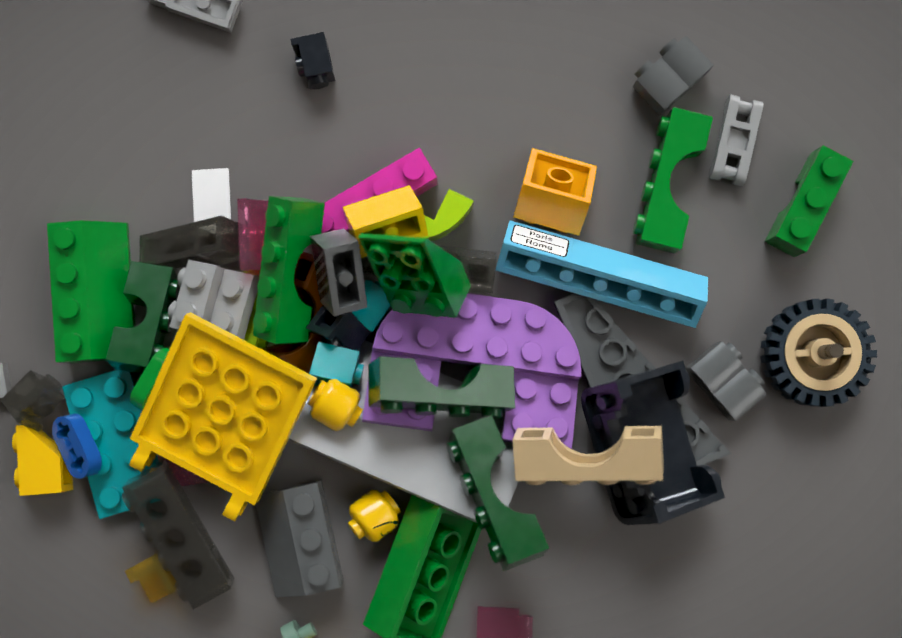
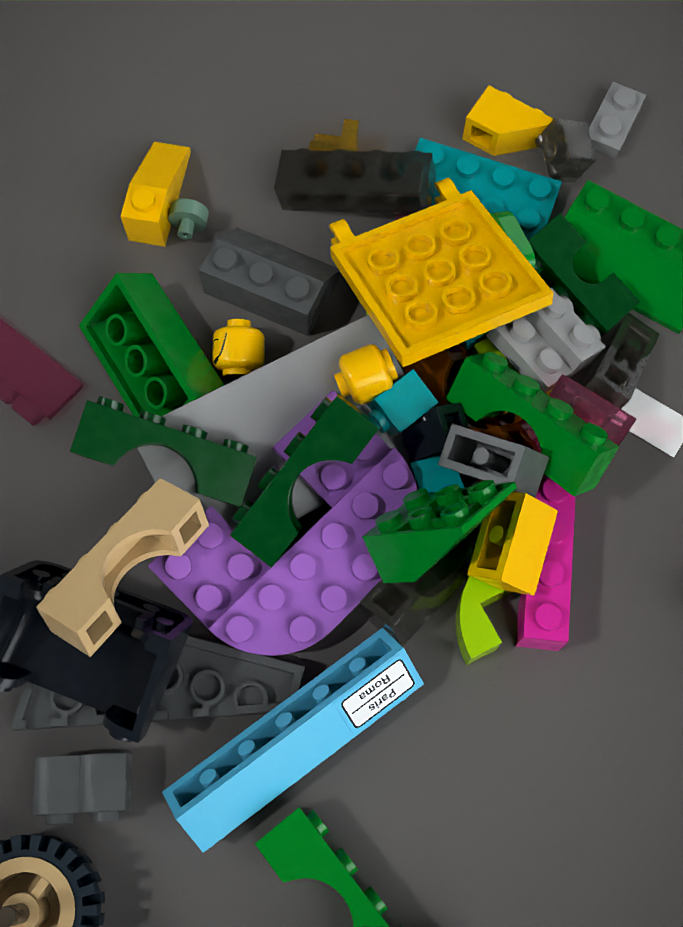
camera: 130 degrees right, 15 degrees down
(76, 446) = (498, 154): blue beam -> none
(555, 192) = (420, 759): light orange slope -> none

